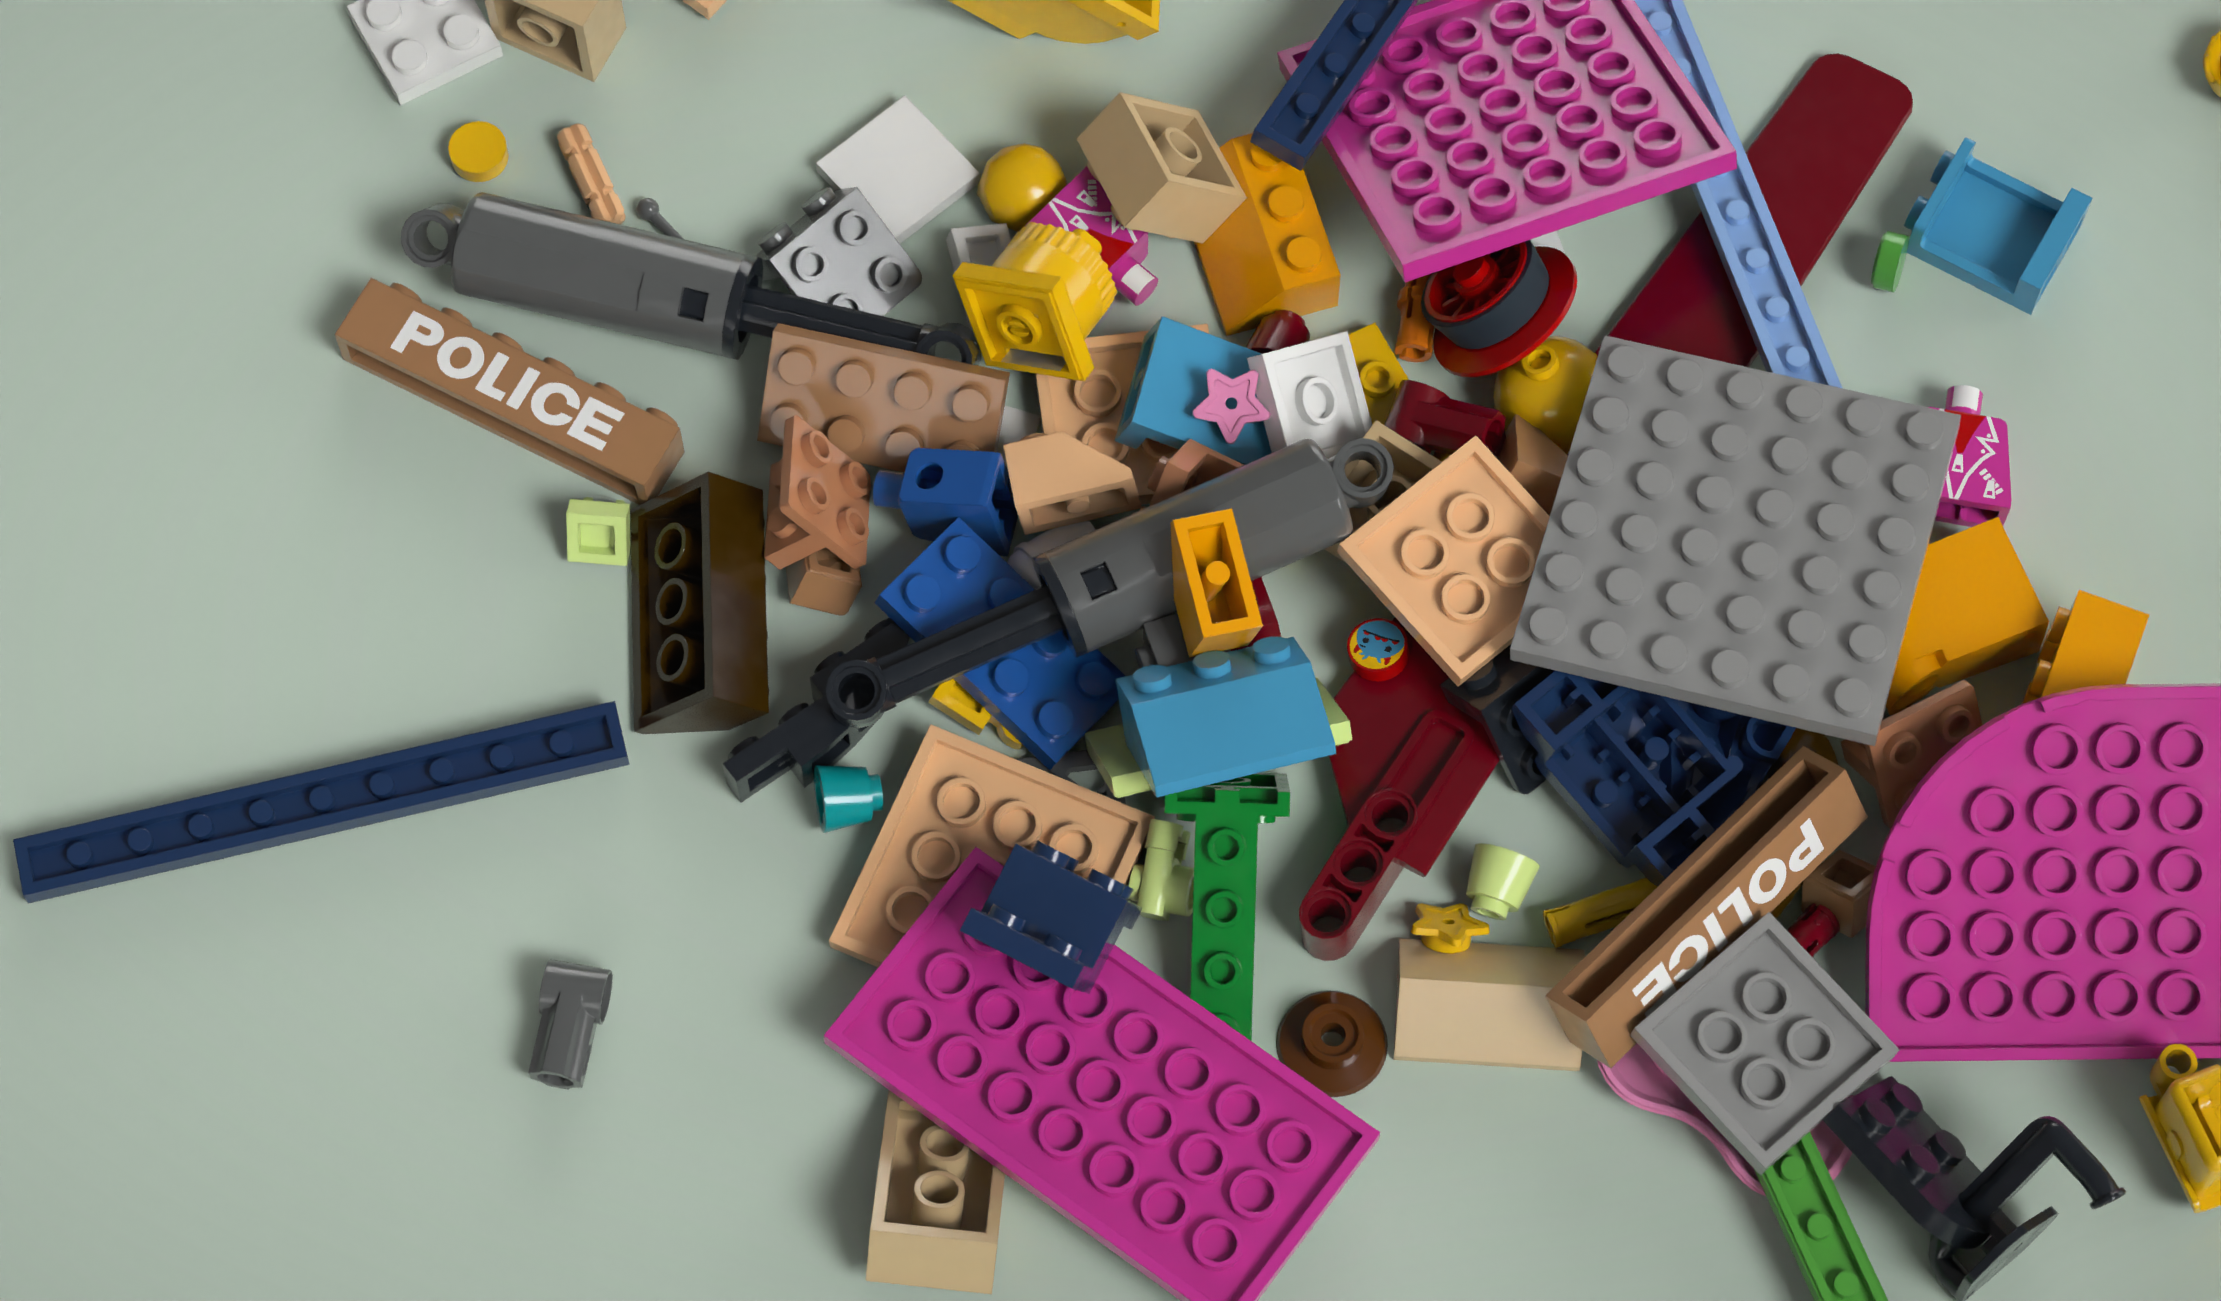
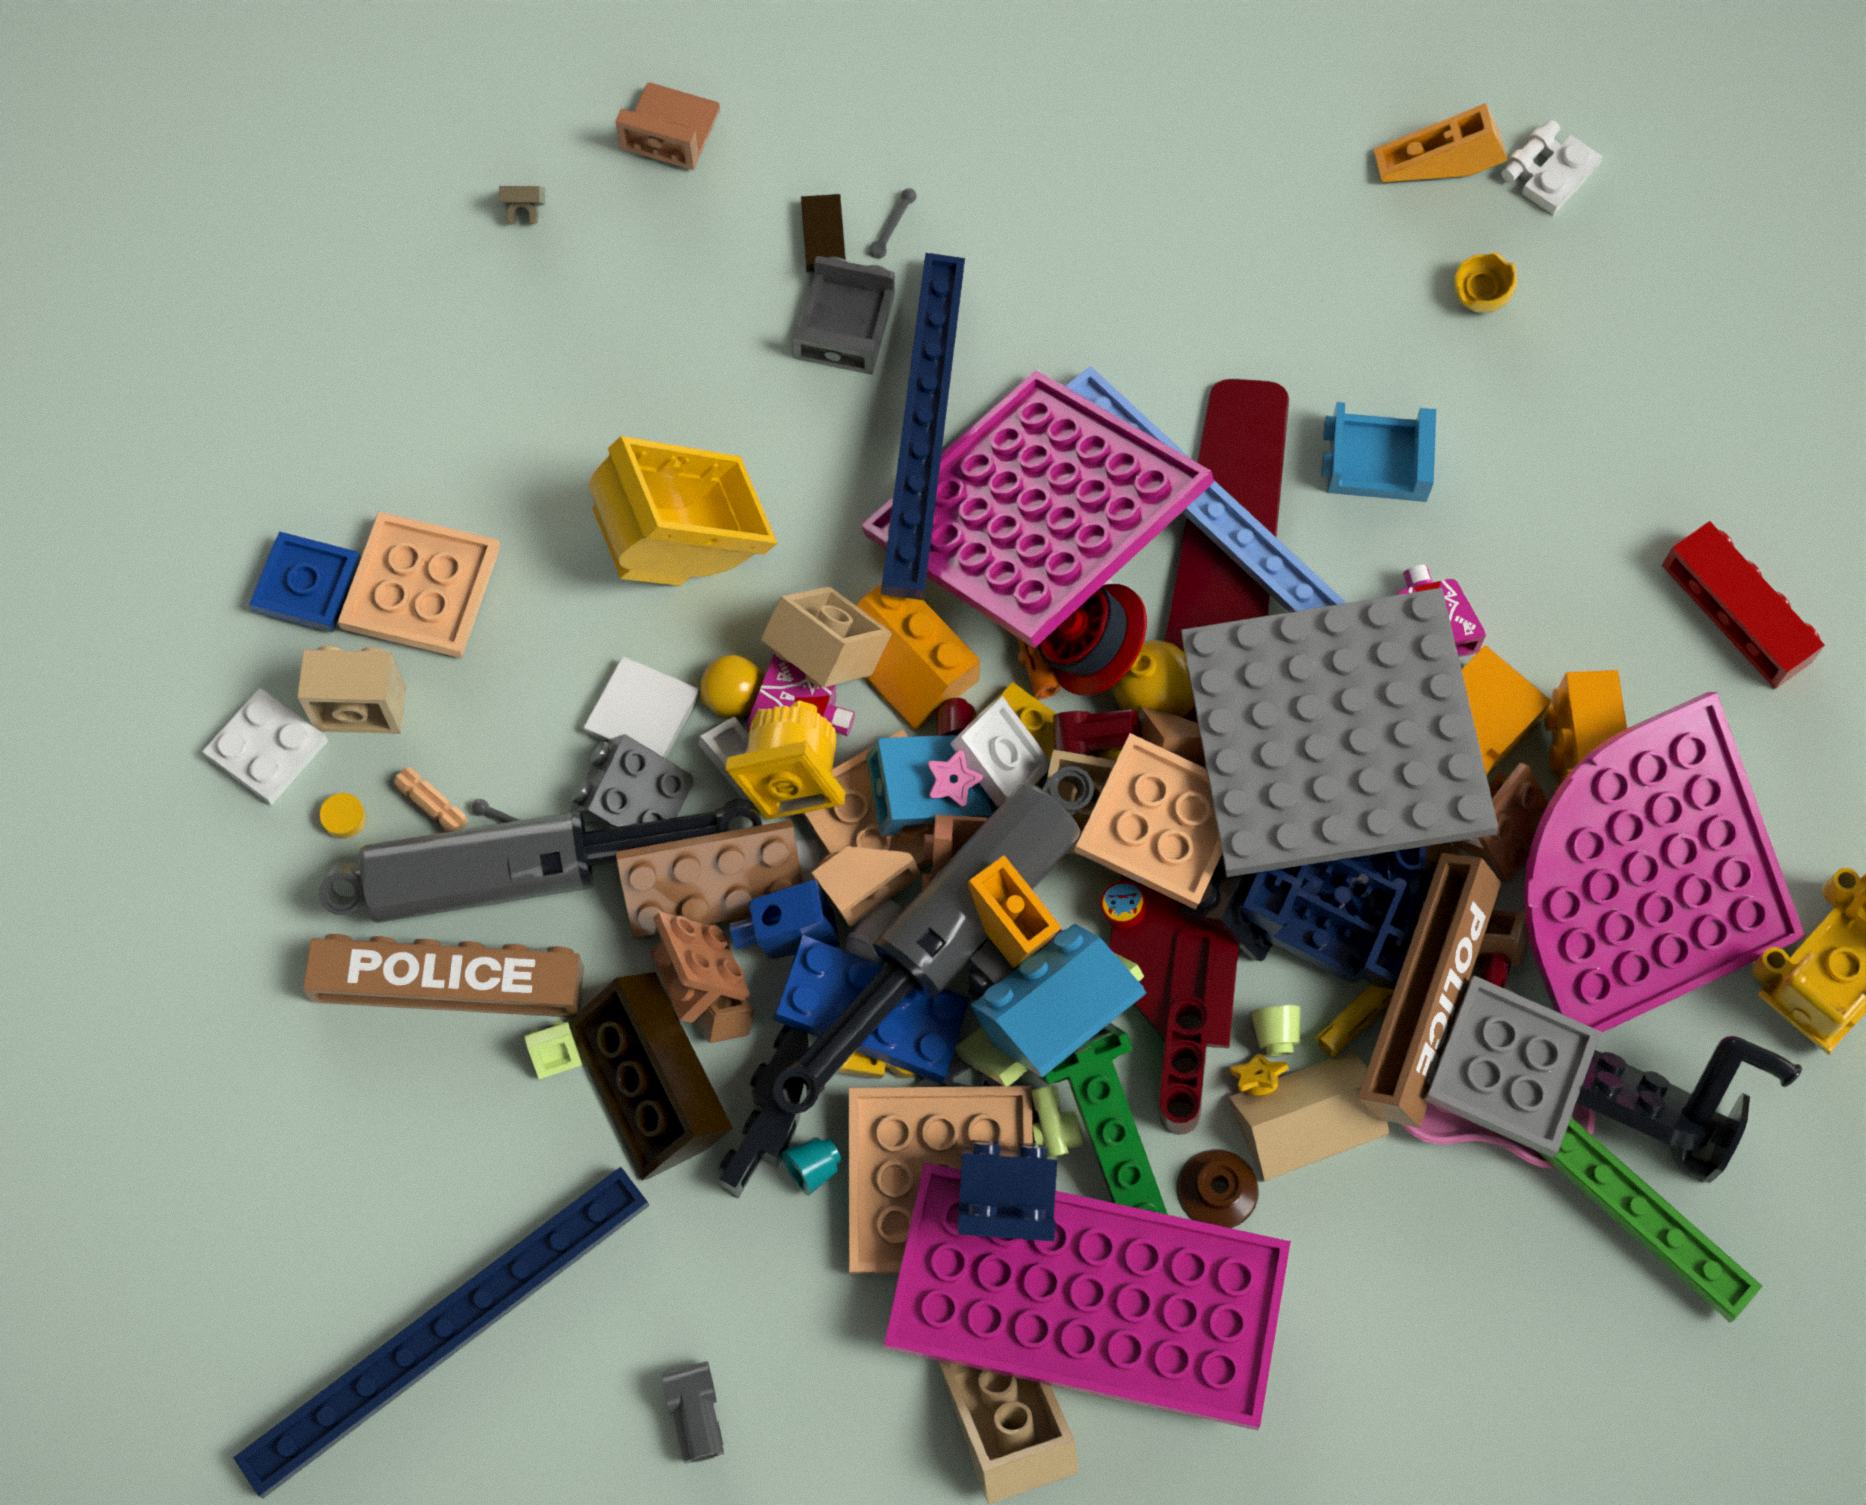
camera: 25 degrees left, 0 degrees up
(1889, 261) = (1325, 503): bright green tile -> none

